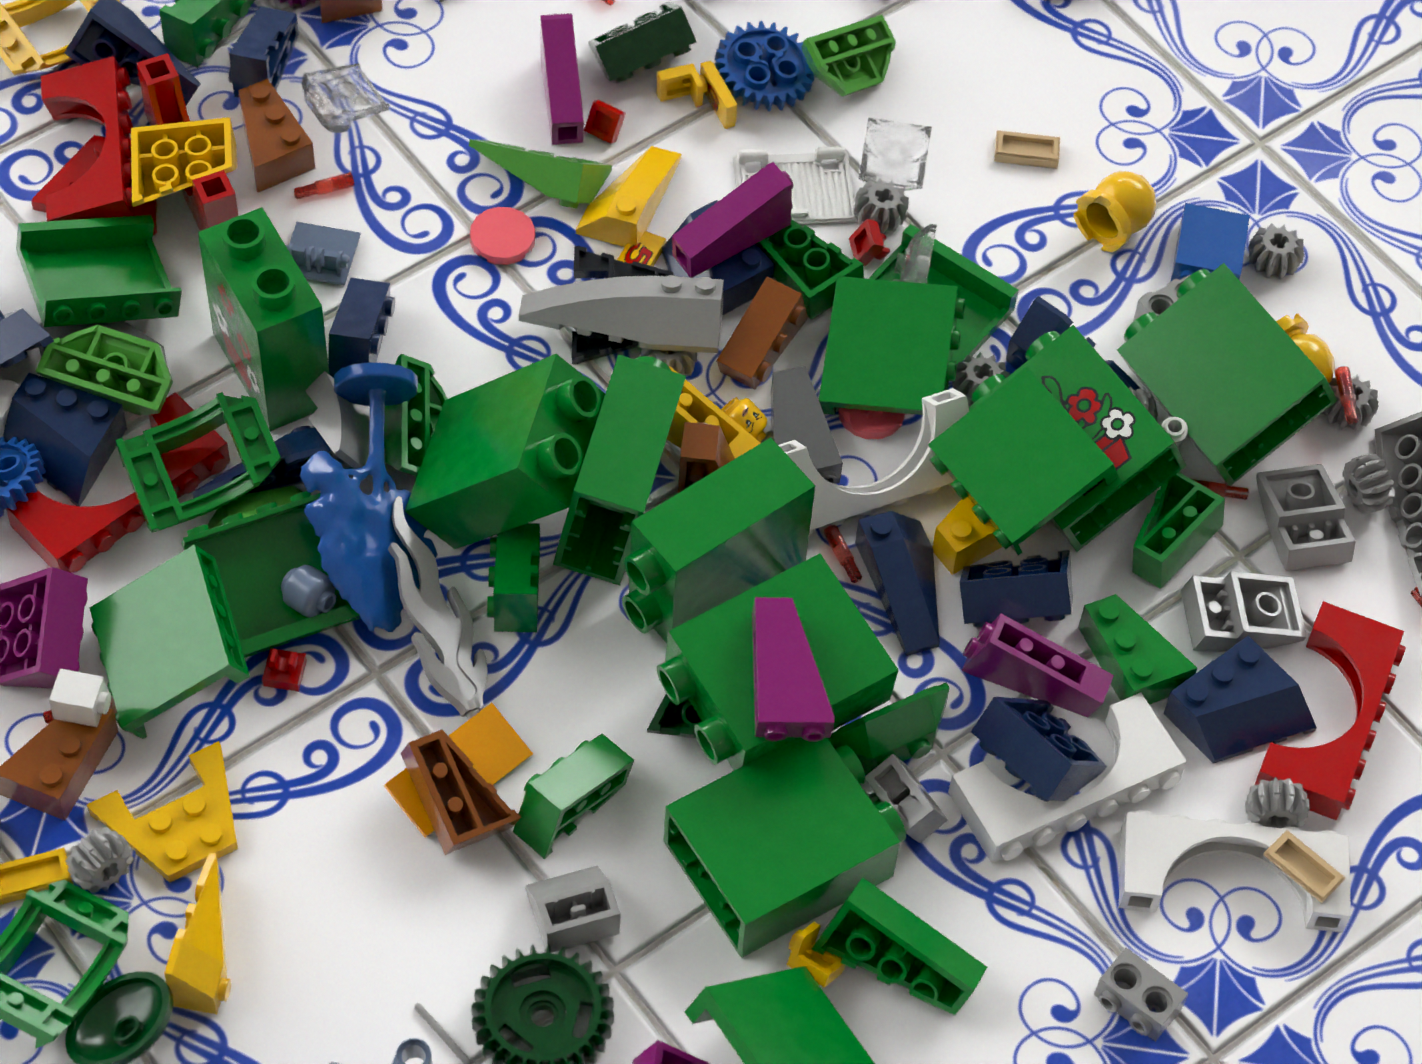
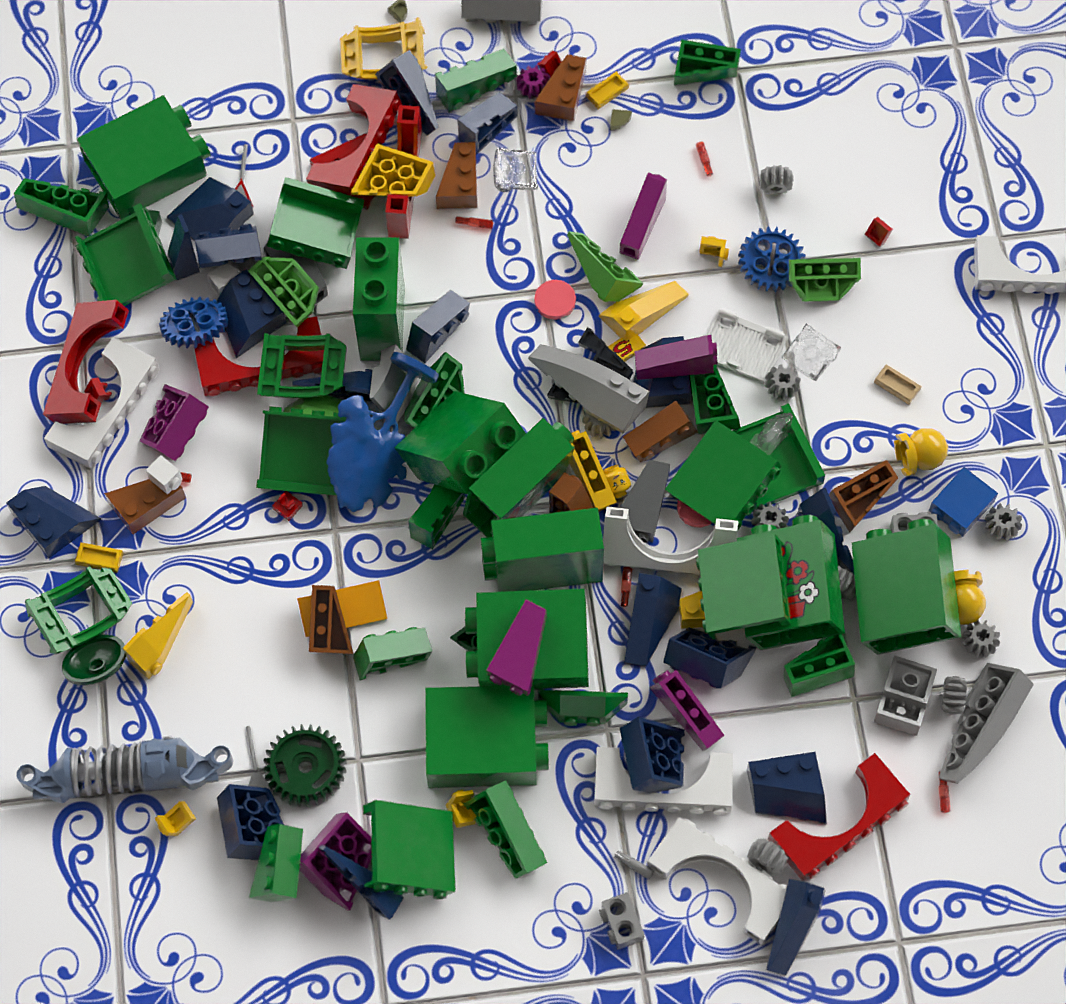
camera: 35 degrees right, 10 degrees up
(99, 860) = (132, 567): light grey gear -> none
(167, 638) = (230, 461): panel -> none
(183, 831) = (187, 570): yellow wing -> none
(308, 591) = (316, 469): sand blue head -> none
(323, 252) = (447, 264): sand blue hinge -> none
(449, 635) = (377, 521): light grey piece -> none
(574, 908) = (354, 716): light grey slope -> none
(604, 121) = (655, 253): red tile -> none
(644, 43) = (707, 212): dark green wedge -> none
(719, 95) = (732, 265): yellow tile -> none
(868, 242) = (759, 402): red tile -> none
(900, 787) = (564, 747): light grey brick -> none
(1084, 286) = (861, 493): none -> dark orange wedge
(1103, 912) = (635, 865): none -> light grey pin
(1132, 651) = (747, 729): green wedge -> none
(1176, 429) = (854, 606): white pin -> none
(1220, 489) = (865, 652): clear red pin -> none
(1241, 605) = (829, 734): light grey slope -> none
(1304, 866) = (754, 899): tan tile -> none
(1346, 393) = (976, 634): clear red pin -> none
(1374, 859) = (798, 914): none -> dark blue wedge

